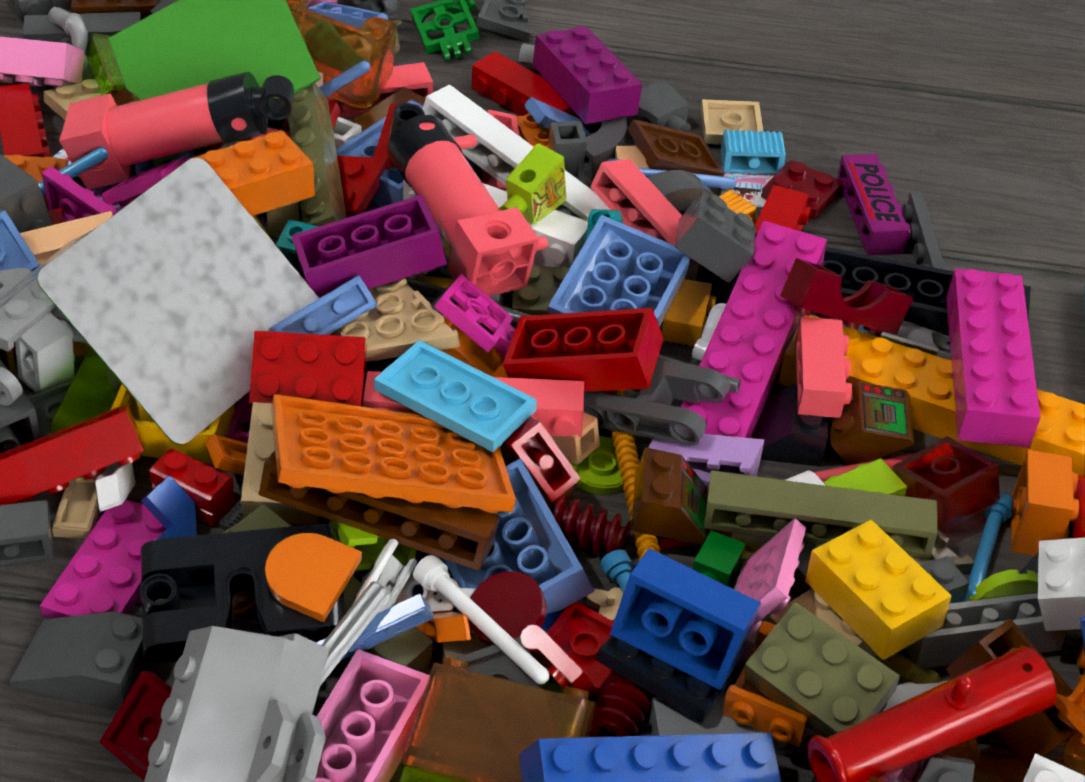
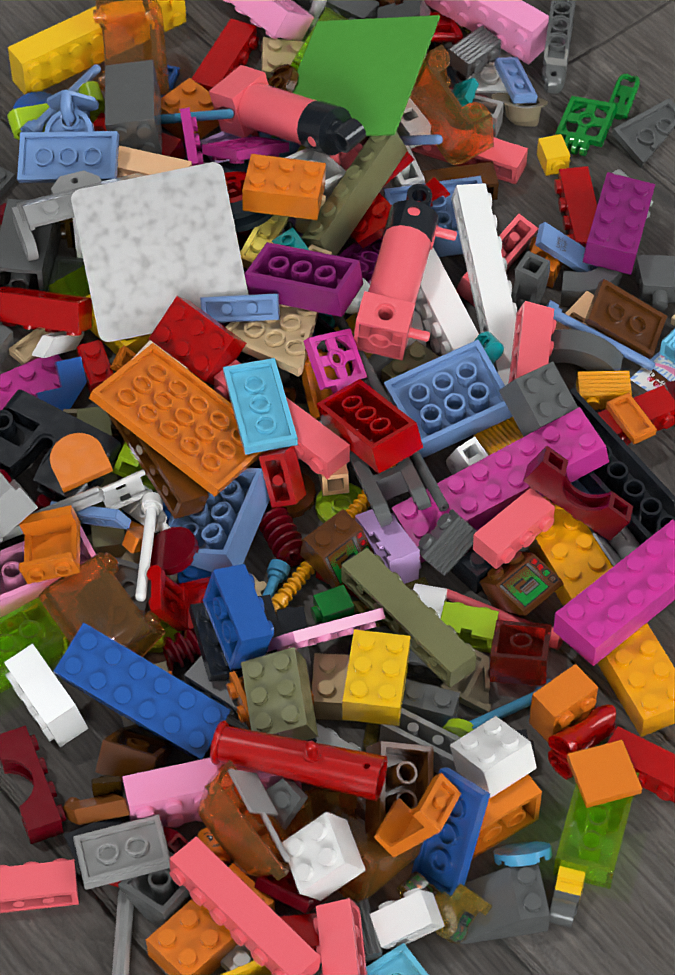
camera: 45 degrees right, 10 degrees up
(373, 692) = (50, 544): none -> orange panel
(446, 61) = (553, 154): none -> yellow brick
(537, 184) = (456, 294): lime torso -> none
(685, 335) = (465, 455): none -> white leg
(772, 417) = (447, 542): none -> dark grey brick
(786, 218) = (631, 418): none -> orange tile

